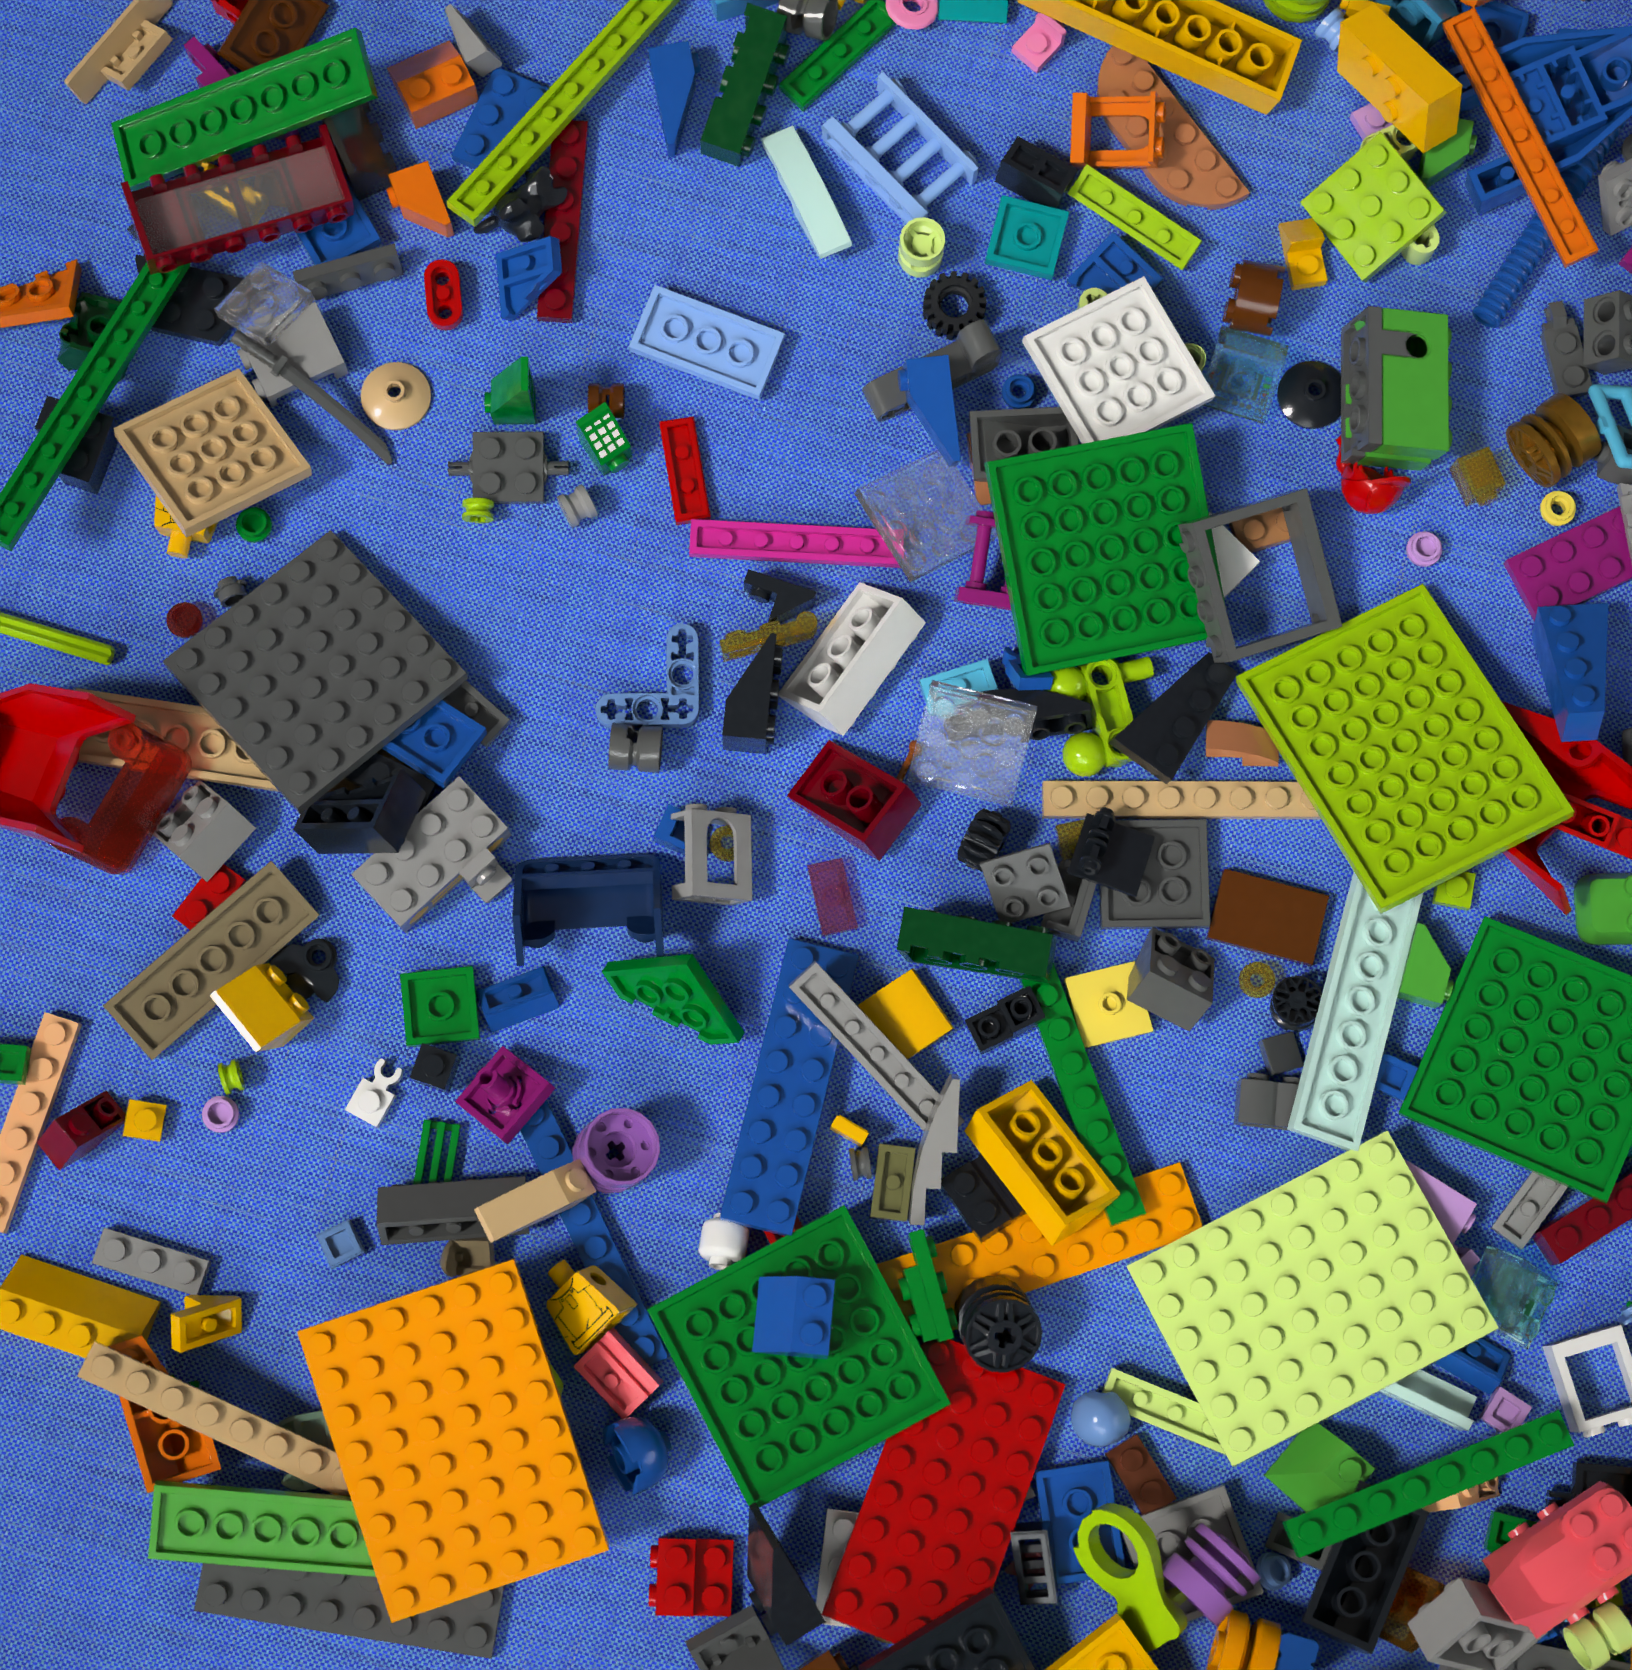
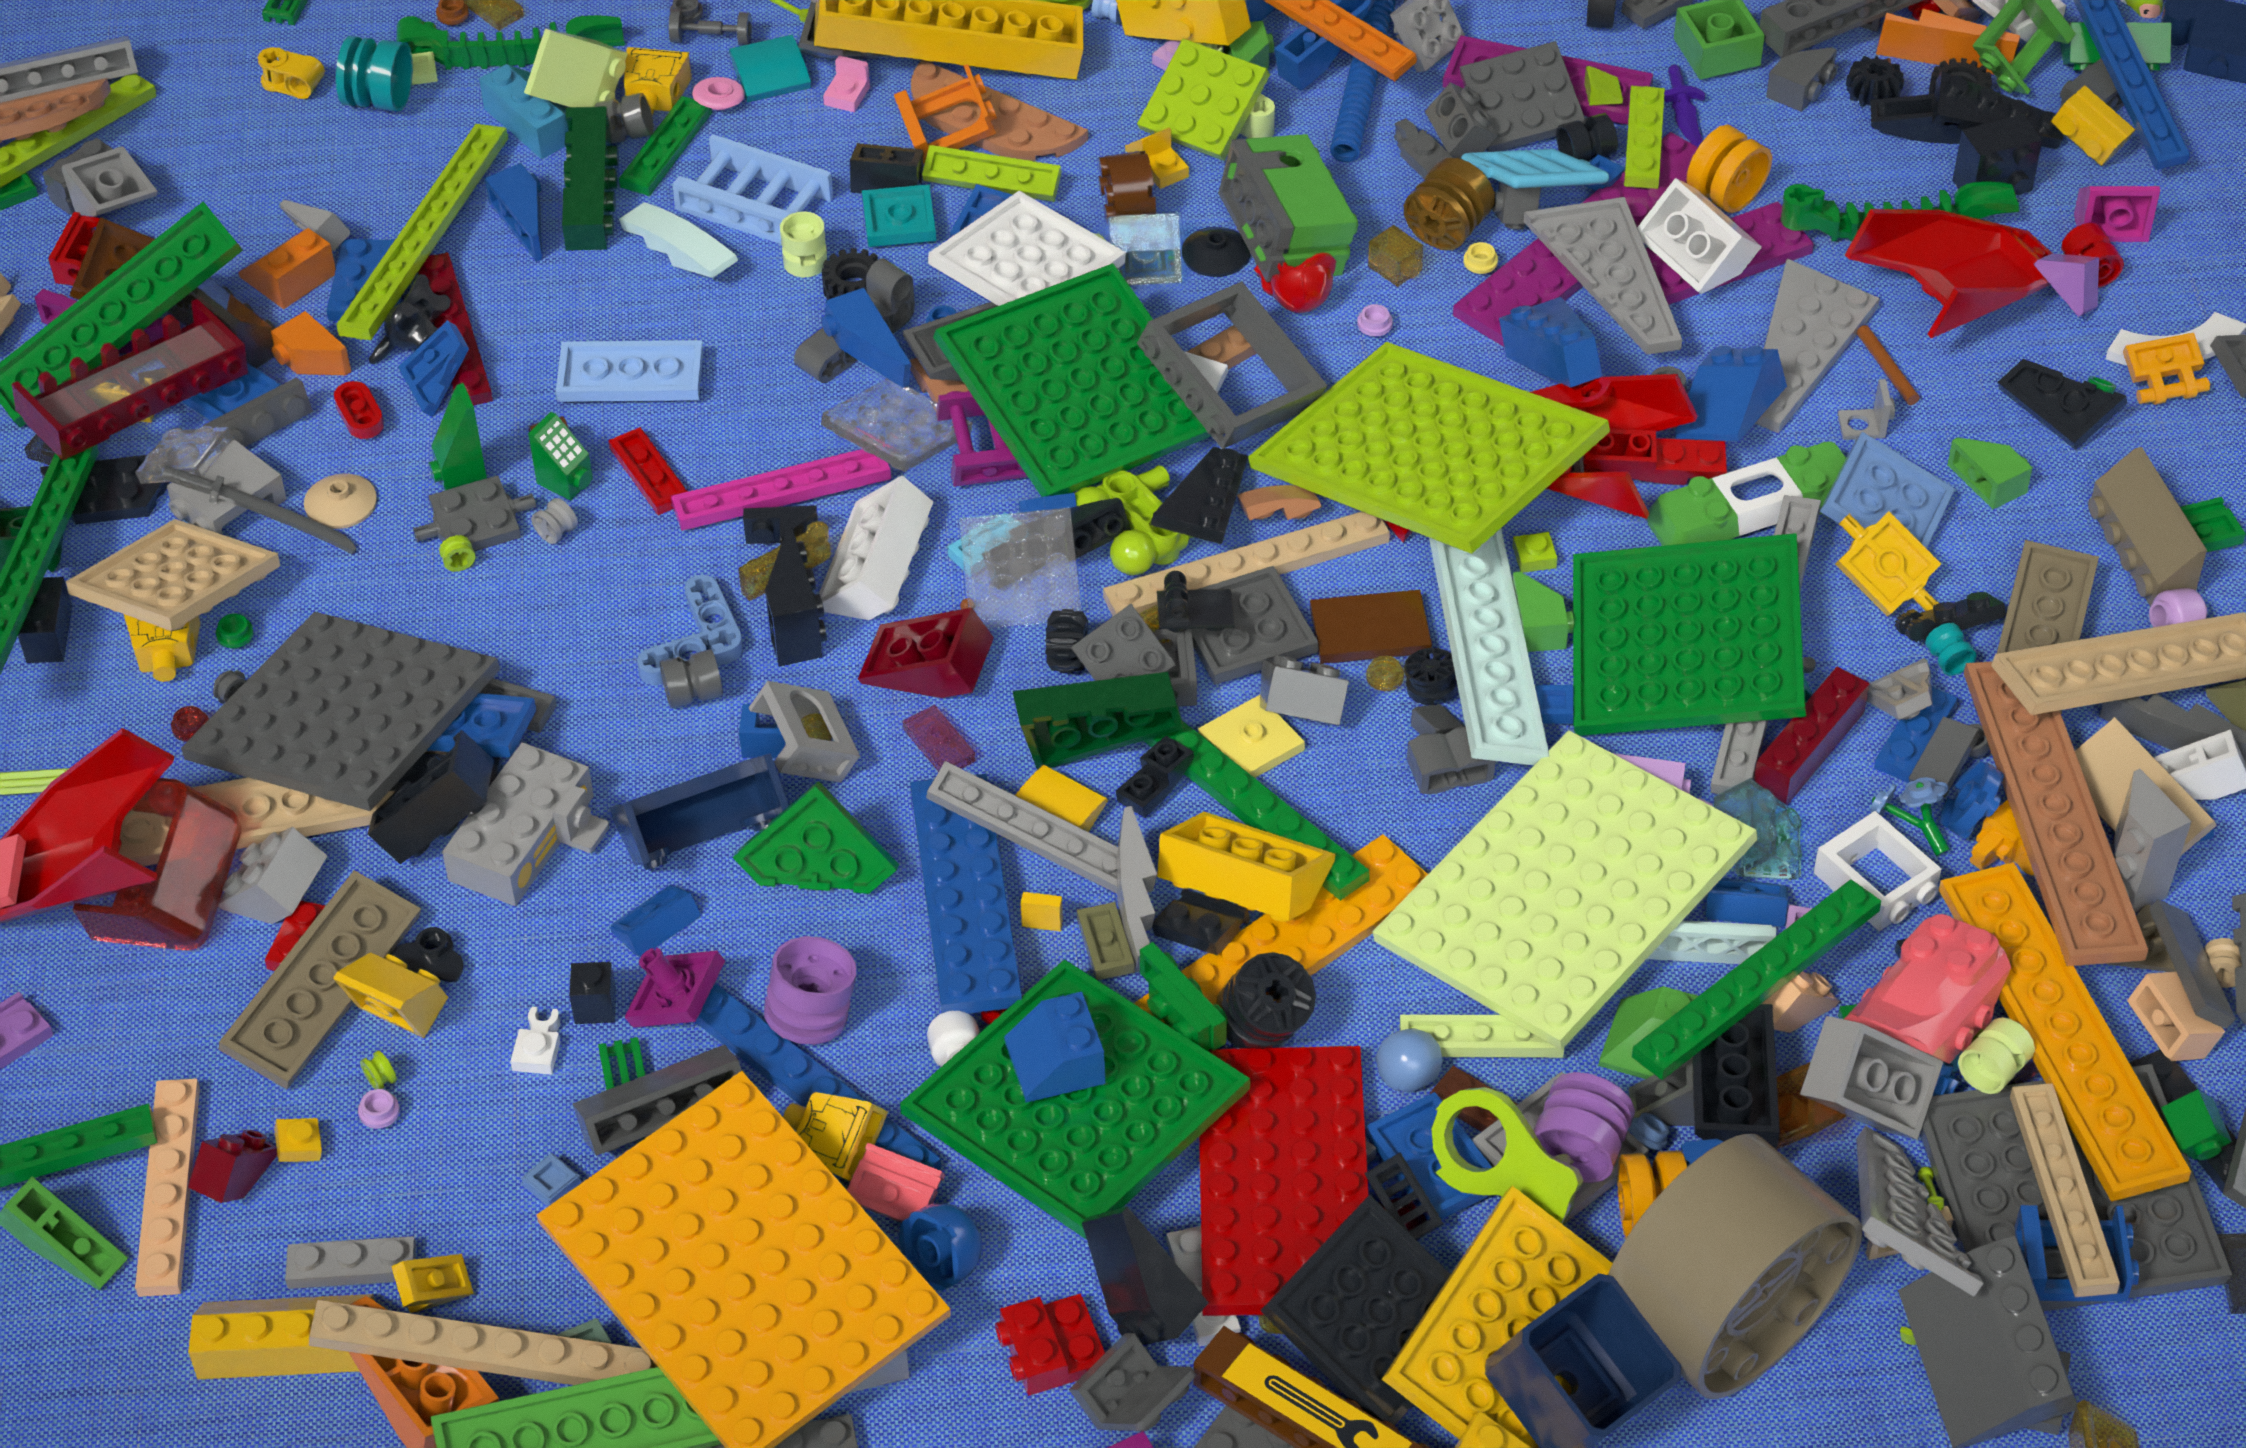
camera: 15 degrees left, 30 degrees down
(440, 1006) = (575, 937): green plate -> none
(535, 1201) = (748, 1038): tan slope -> none
(860, 1163) = (1065, 935): dark grey bush -> none

